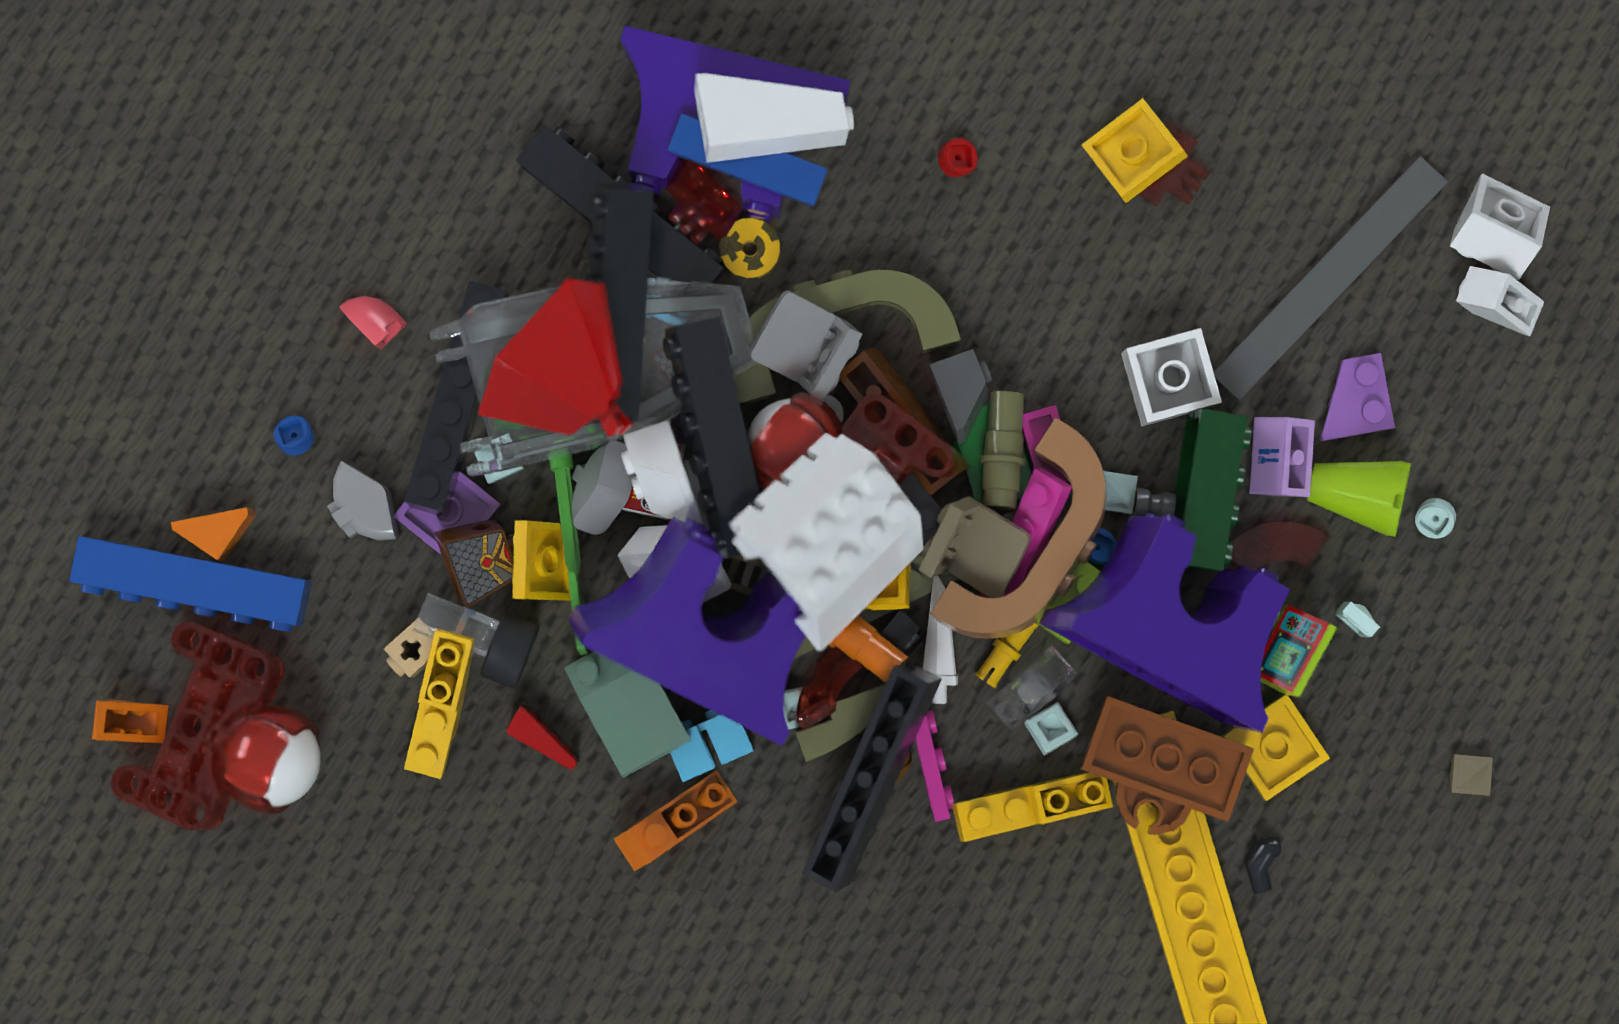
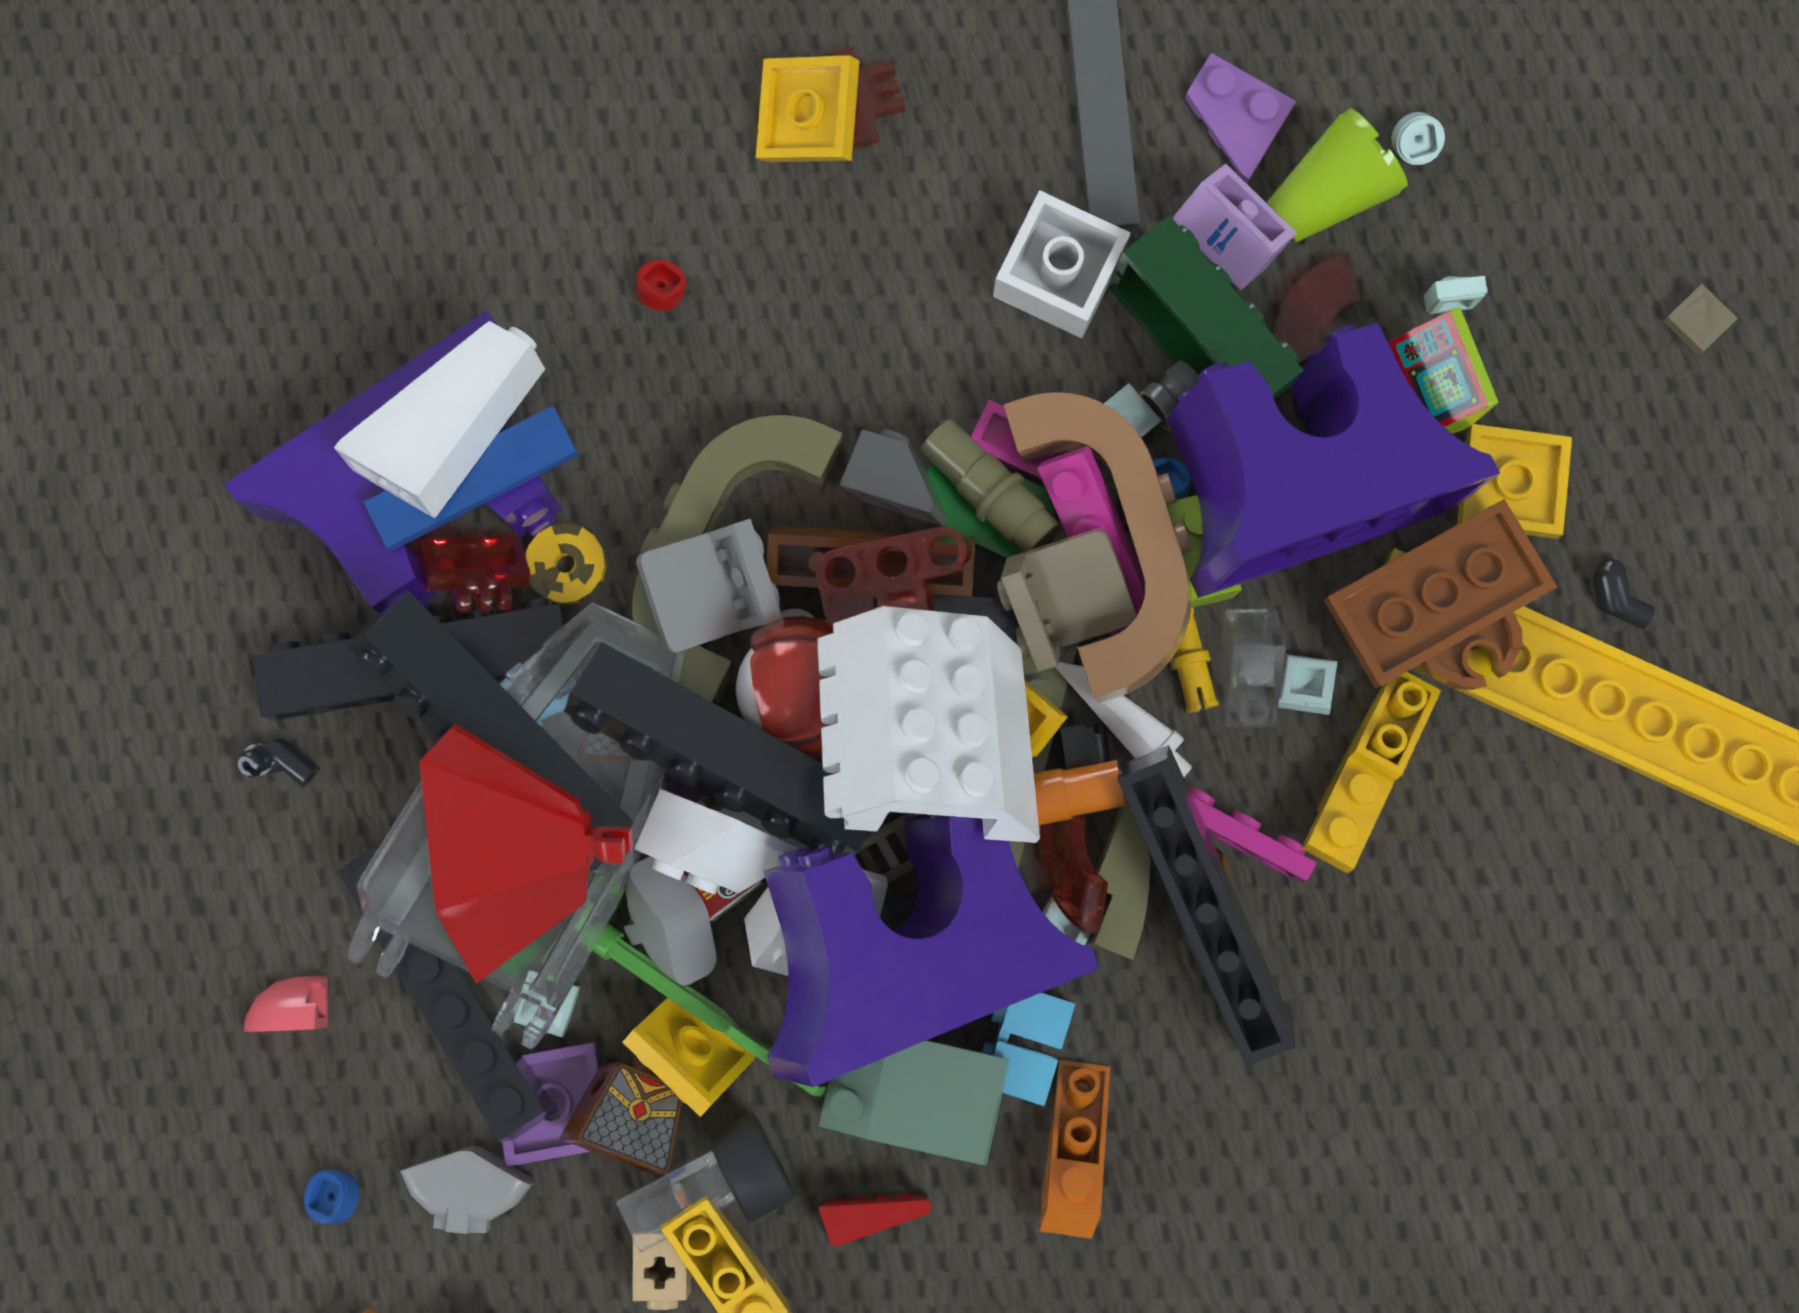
camera: 50 degrees left, 5 degrees down
(501, 186) = (274, 757): none -> black arm

